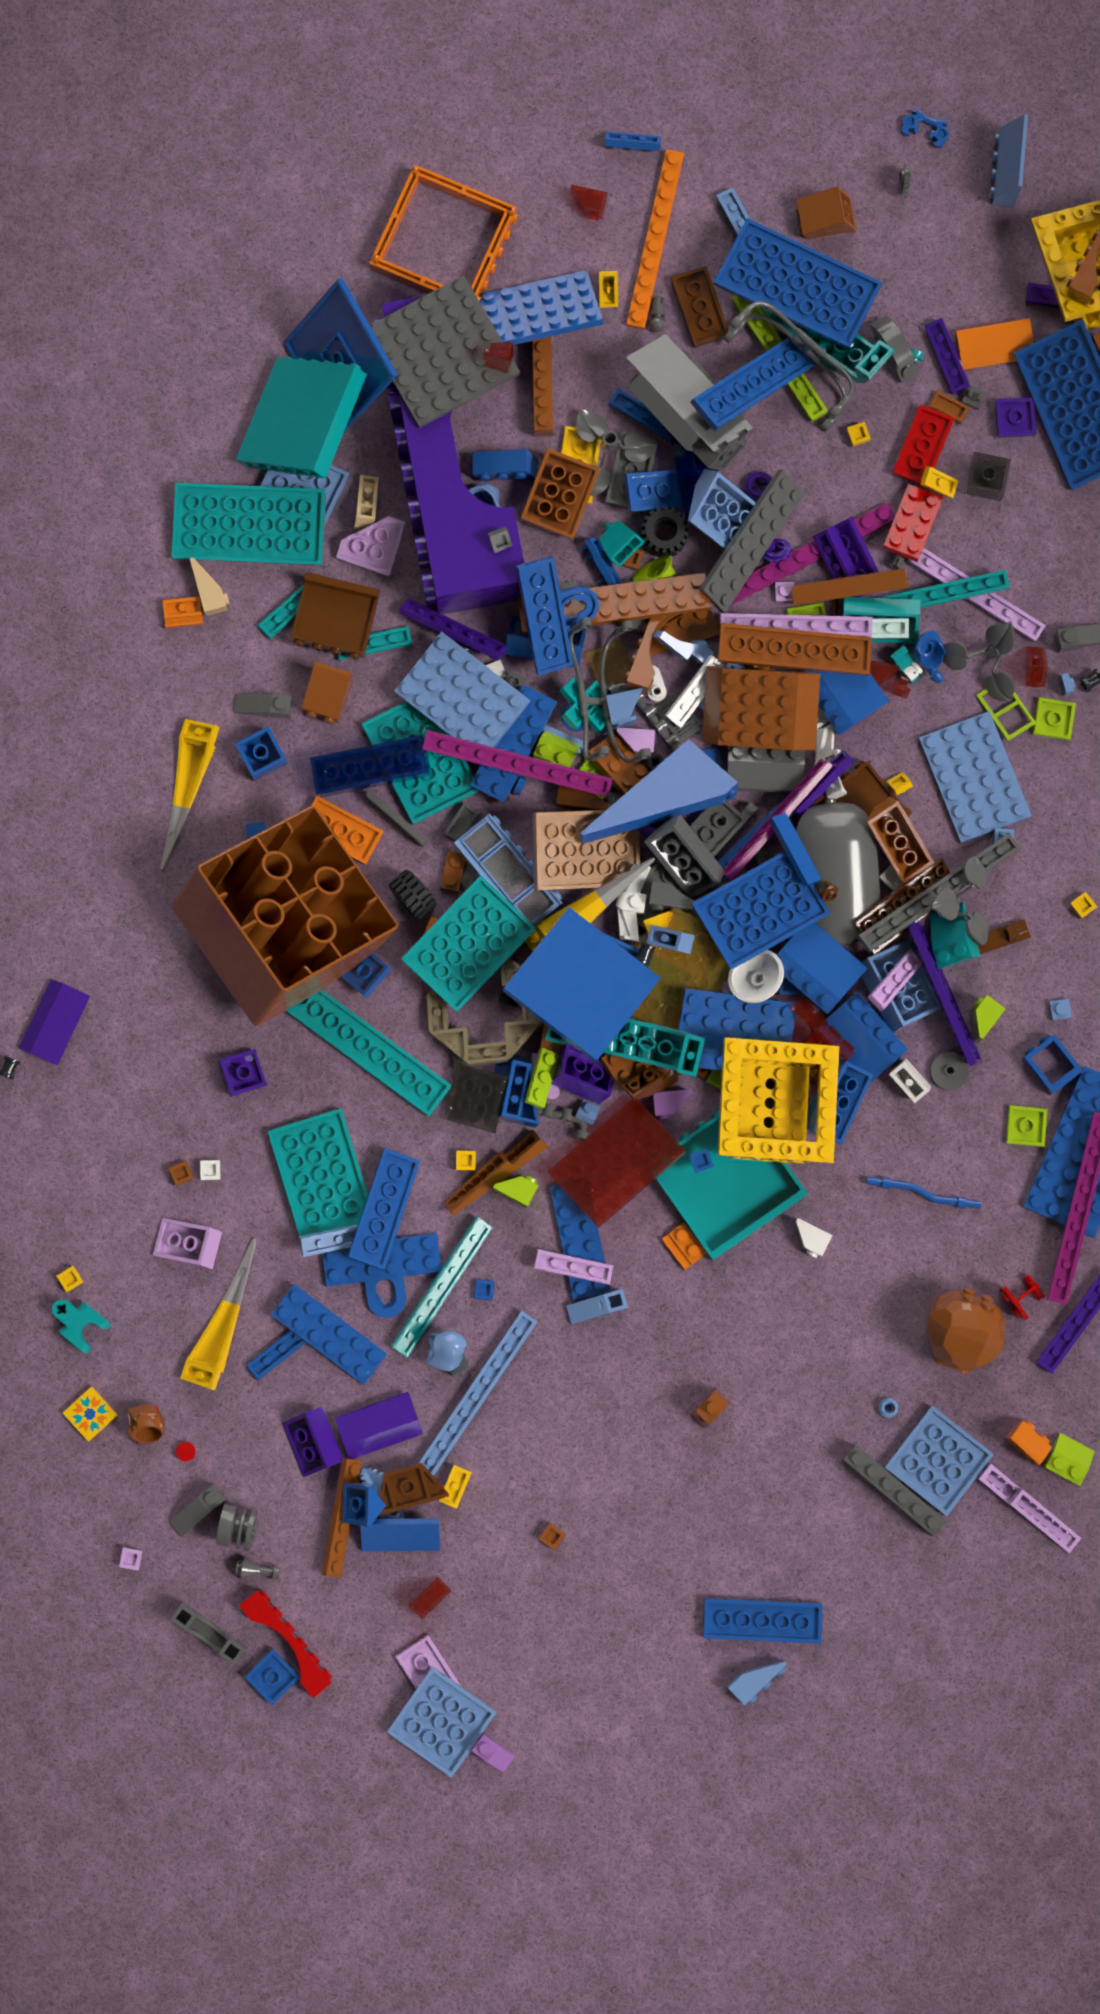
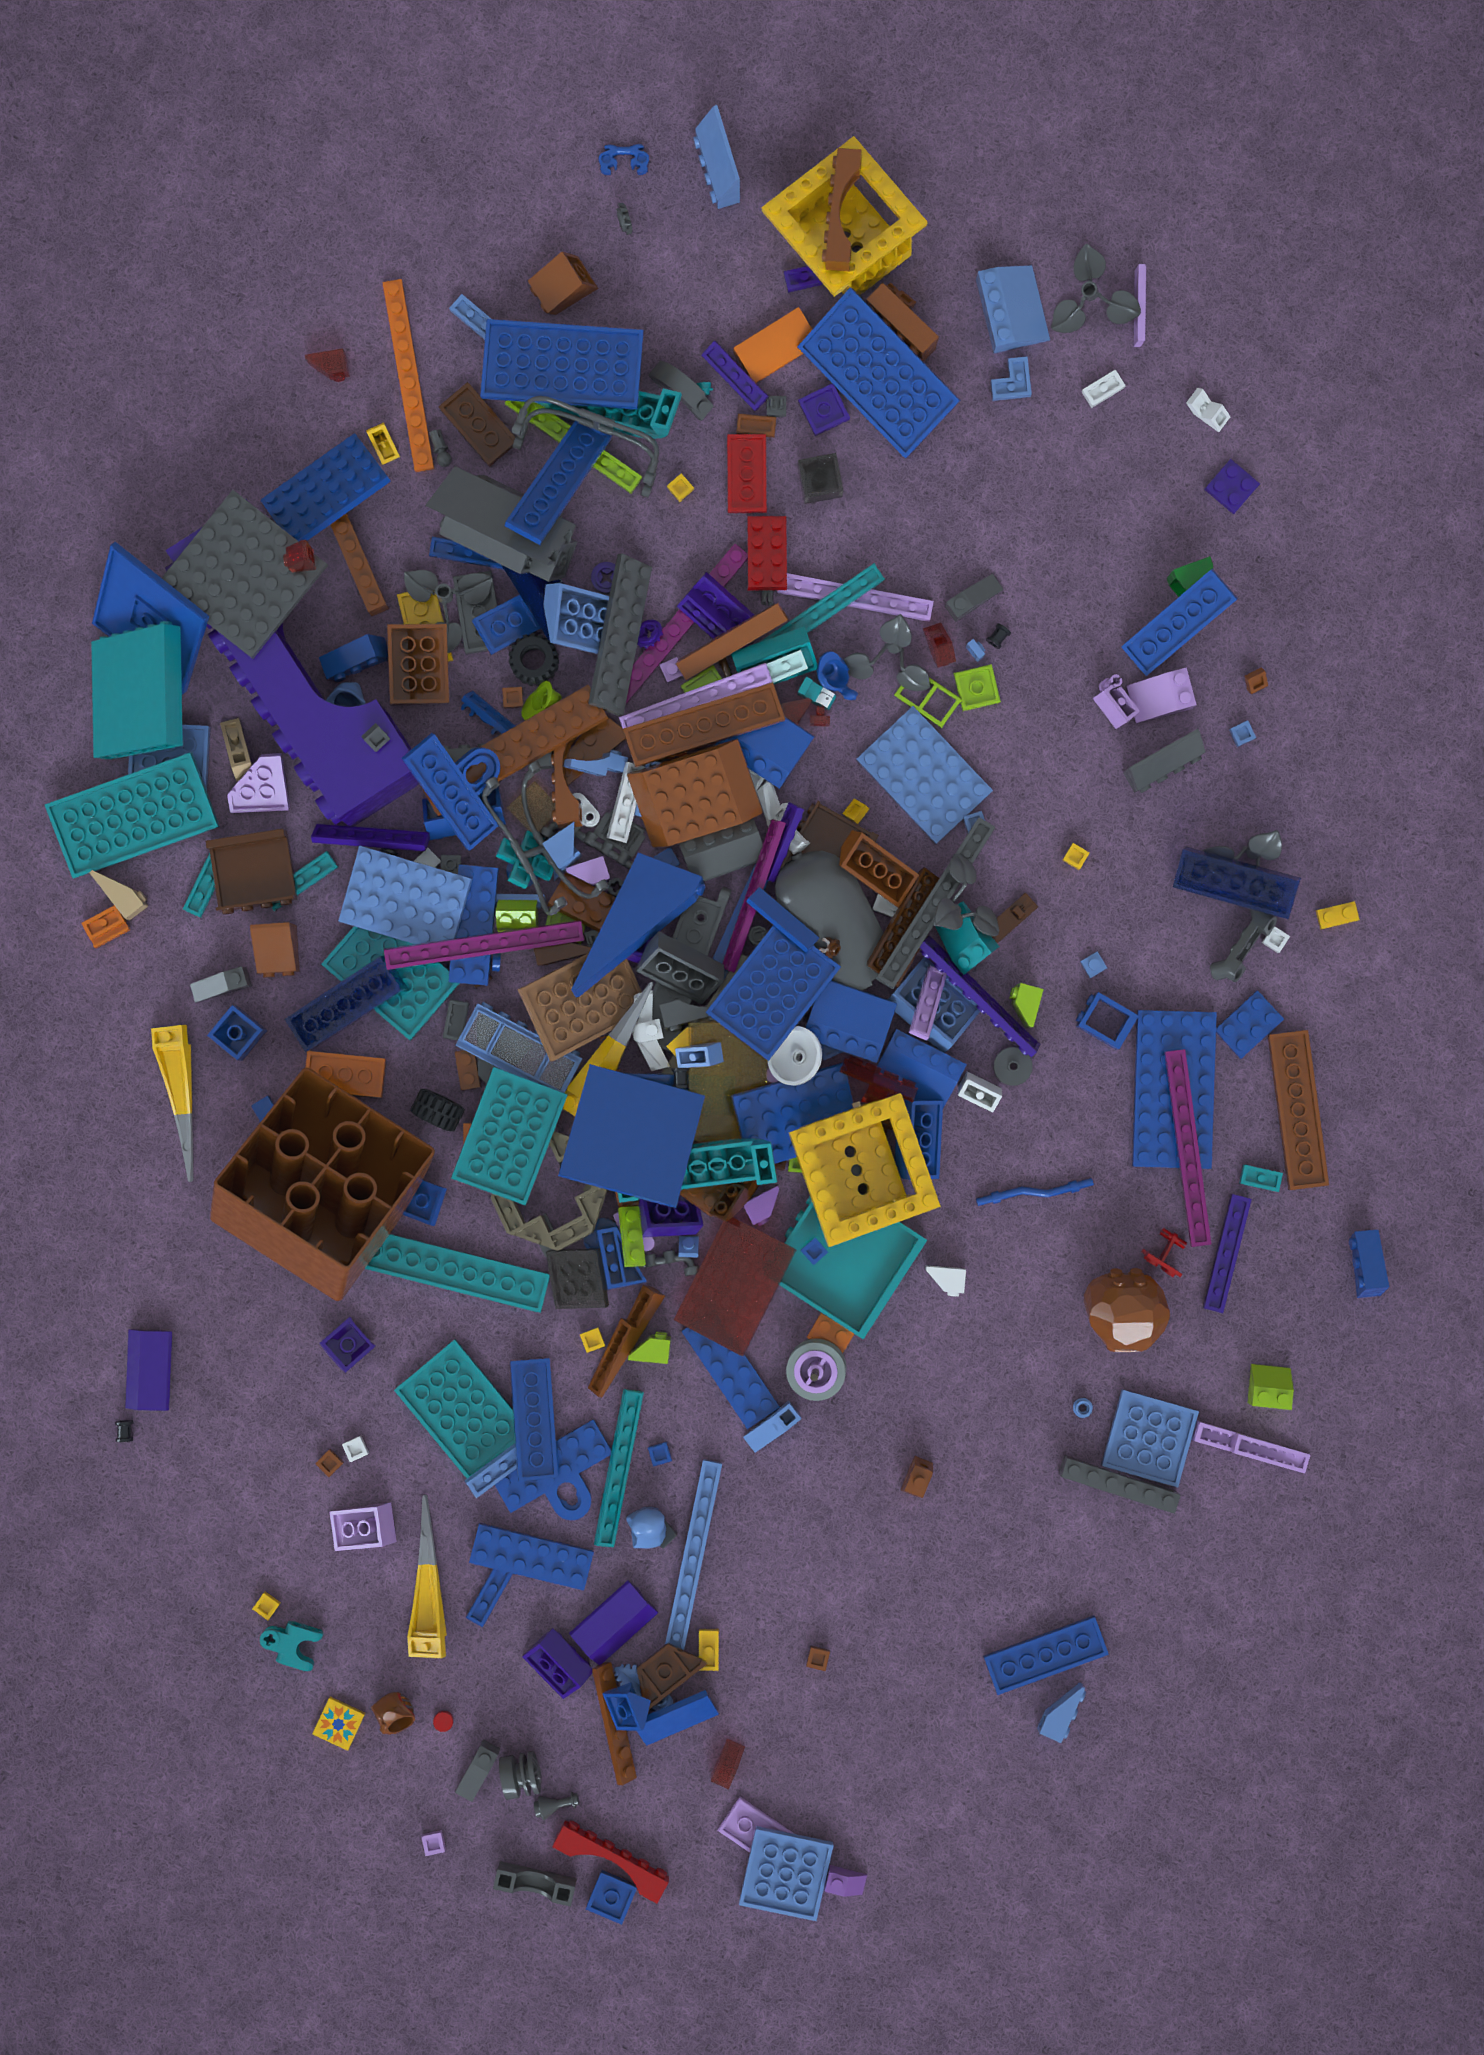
camera: 20 degrees left, 5 degrees up
(396, 818) = (392, 1041): dark grey tile -> none
(458, 190) = (258, 450): orange window -> none
(573, 1267) = (734, 1399): lavender tile -> none
(619, 542) = (494, 687): teal torso -> none
(632, 141) = (347, 287): blue plate -> none
(659, 1270) = (816, 1369): none -> wheel
(939, 482) = (776, 503): yellow plate -> none
(1026, 1126) = (1105, 1088): lime tile -> none
(1029, 1442) = (1227, 1387): orange slope -> none

